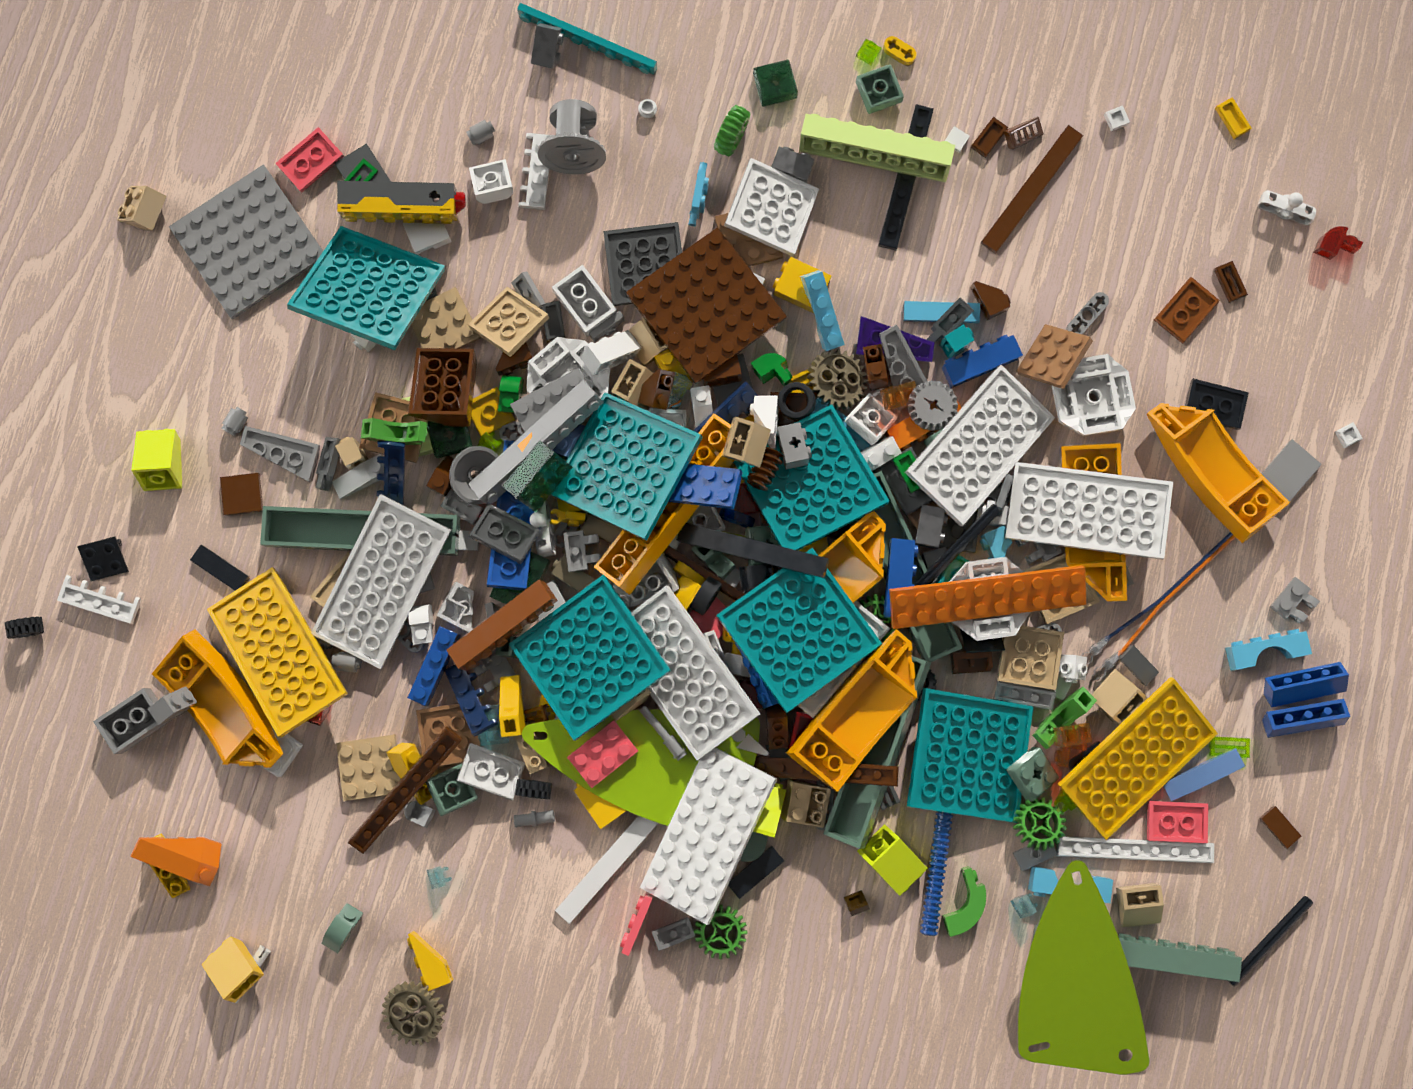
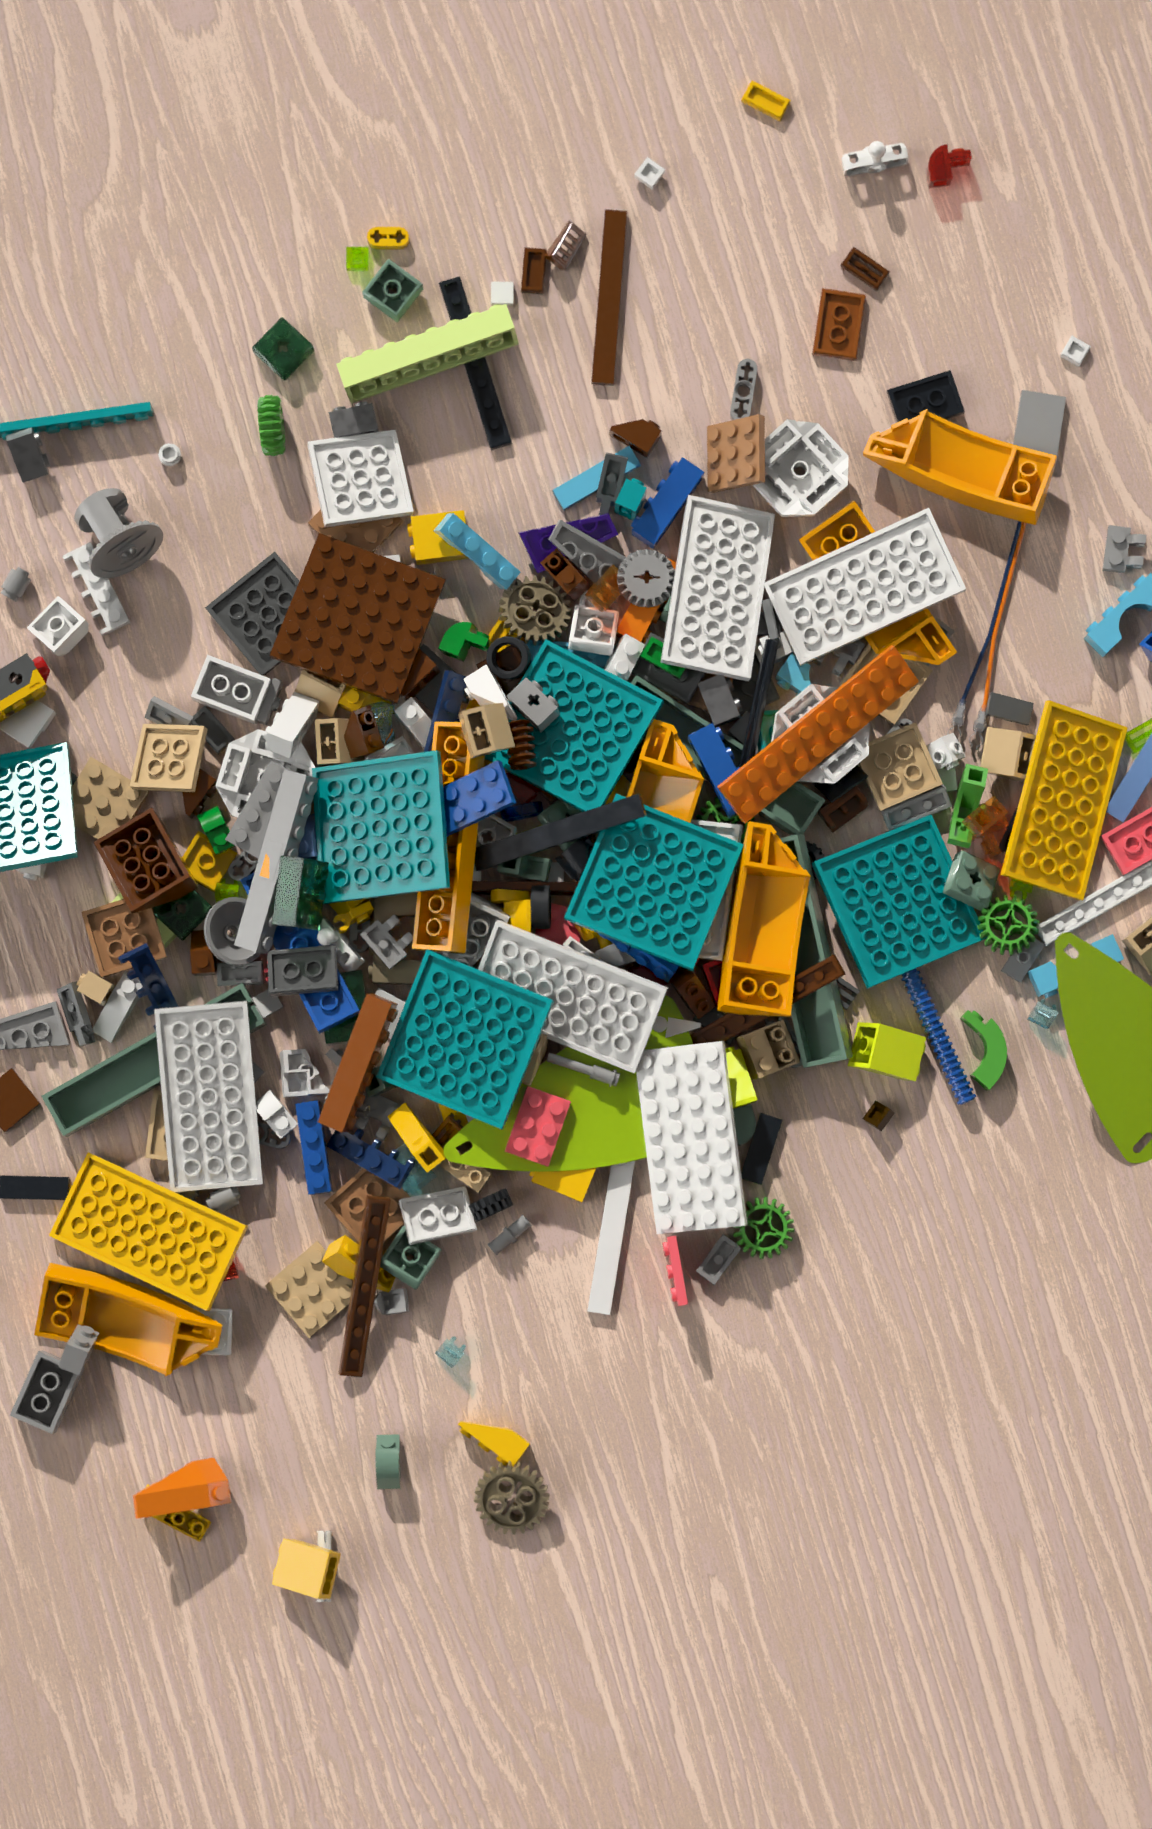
camera: 30 degrees left, 0 degrees up
(380, 430) = (145, 930): bright green arch -> none
(701, 189) = (283, 517): medium azure plate -> none

